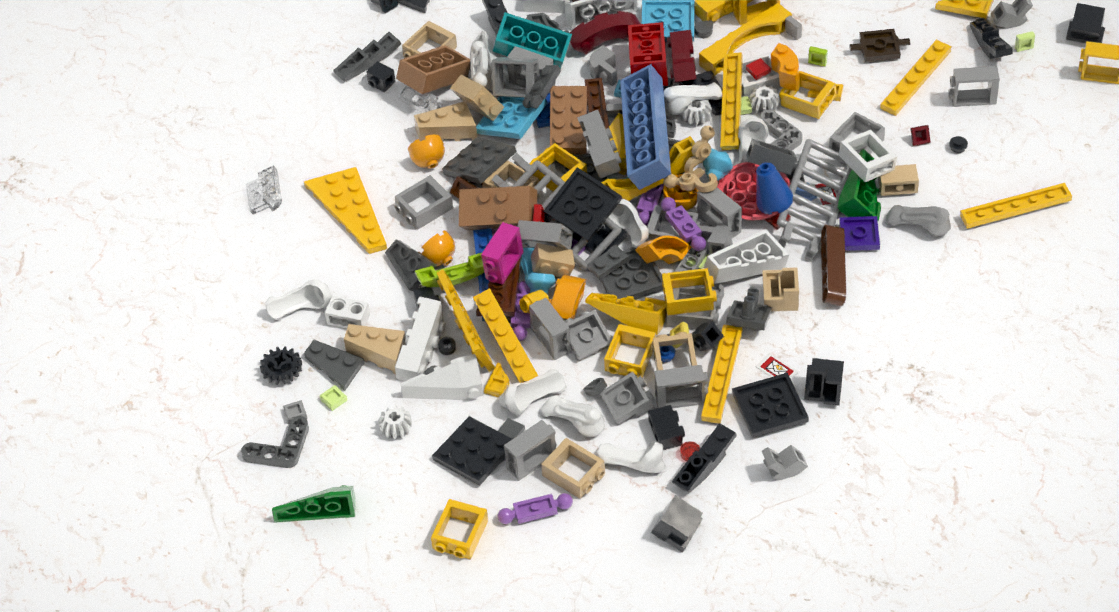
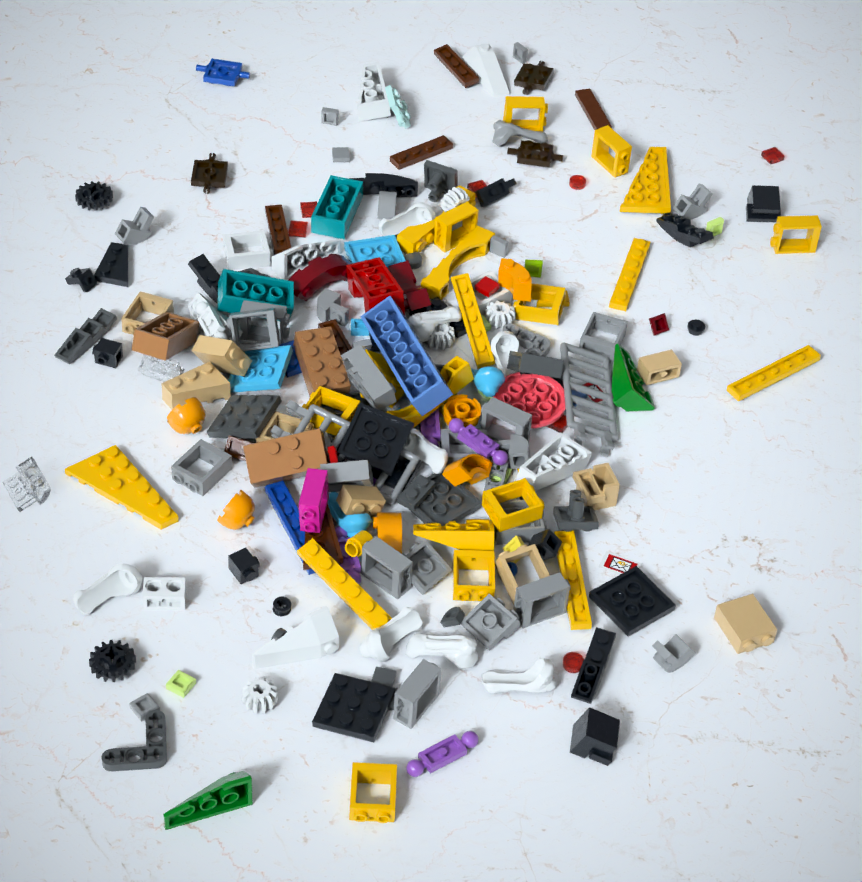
camera: 25 degrees left, 5 degrees down
(336, 363) = (169, 646): dark grey wing -> none
(375, 344) = (209, 620): tan wedge -> none
(406, 261) = (212, 531): dark grey wing -> none
(421, 339) = (255, 605): white wedge -> none
(457, 273) = (267, 531): lime slope -> none
(464, 322) = (302, 579): yellow wing -> none
(497, 382) = (349, 633): yellow tile -> none
(541, 86) = (286, 334): dark grey hinge -> none
(557, 458) = (460, 717): tan window -> none
(666, 427) = (540, 641): black brick -> none
(690, 181) = (471, 399): tan piece -> none
(700, 151) = (474, 368): tan piece -> none
(771, 190) = (554, 394): blue cone -> none
(824, 381) = (679, 566): black plate -> none
(833, 265) = (635, 456): reddish brown beam -> none
(860, 233) = (643, 422): dark purple plate -> none
(868, 448) = (745, 623): none -> tan brick
(874, 168) = (632, 361): white window -> none
(879, 45) = (585, 250): dark brown plate -> none
(931, 218) = (707, 396): light grey hair -> none
(975, 96) = (703, 280): light grey window -> none

